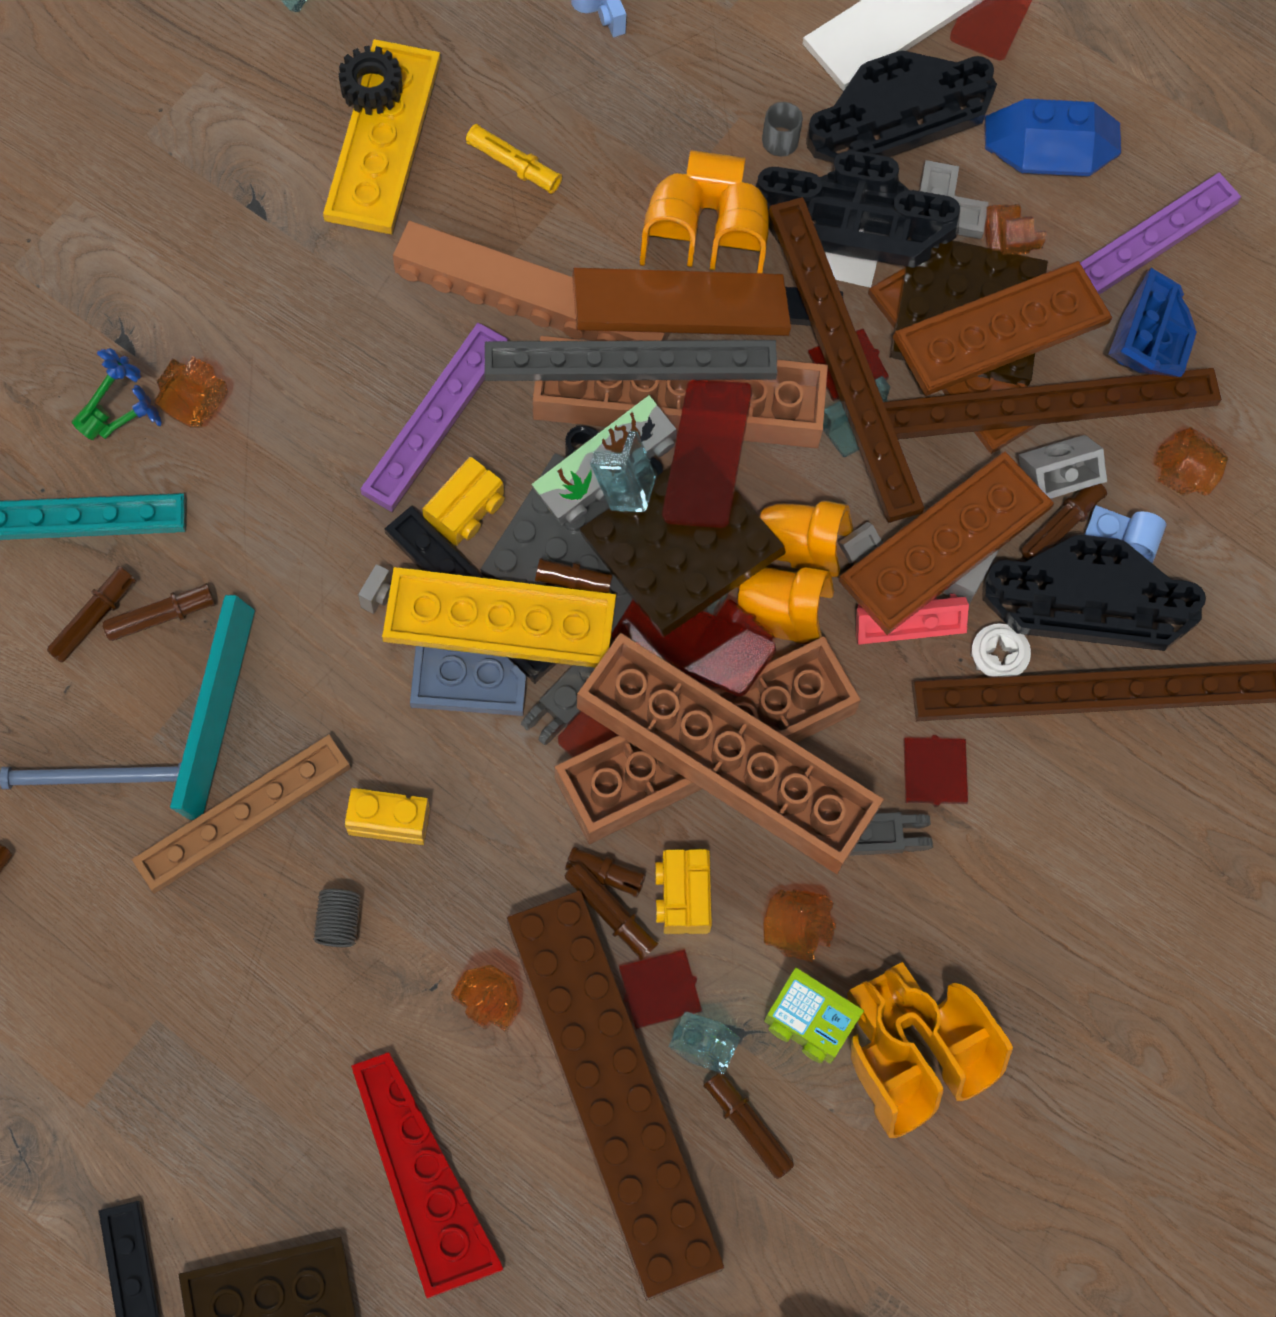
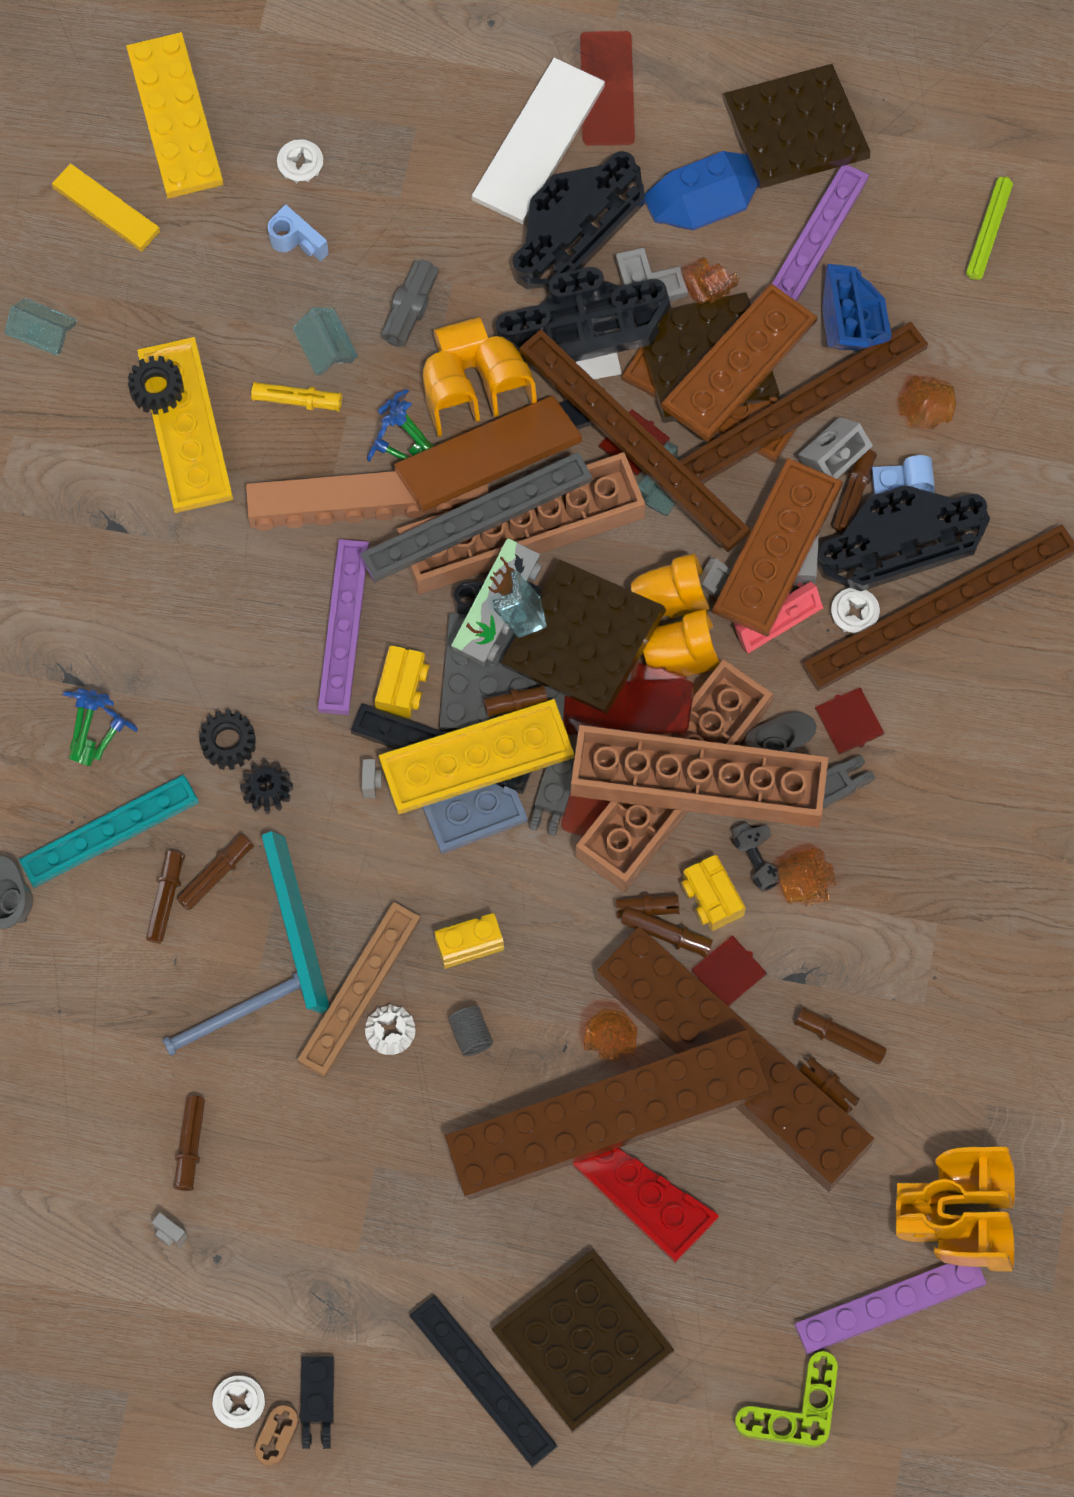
camera: 20 degrees left, 0 degrees up
(190, 392) = (149, 694): clear orange hair -> none
(243, 459) = (227, 722): none -> black tyre
(247, 891) = (393, 1043): none -> white gear
(269, 536) = (262, 777): none -> black gear
(434, 1090) = (607, 1114): none -> reddish brown brick
(574, 114) = (324, 339): none -> clear light blue panel
(603, 216) = (399, 416): none -> blue plant
(682, 116) = (410, 303): none -> dark grey piece
(704, 1042) = (781, 992): clear light blue brick -> none
(707, 453) = (570, 561): clear red piece -> none
(707, 1176) = (830, 1085): none -> reddish brown pin
(754, 850) = (747, 841): none -> dark grey piece
(786, 116) = (497, 267): dark grey piece -> none
(812, 1017) = (849, 937): lime slope -> none
(850, 749) = (783, 733): none -> dark grey piece
(893, 1070) = (928, 948): light orange piece -> none
(1186, 114) = (796, 126): none -> dark brown plate

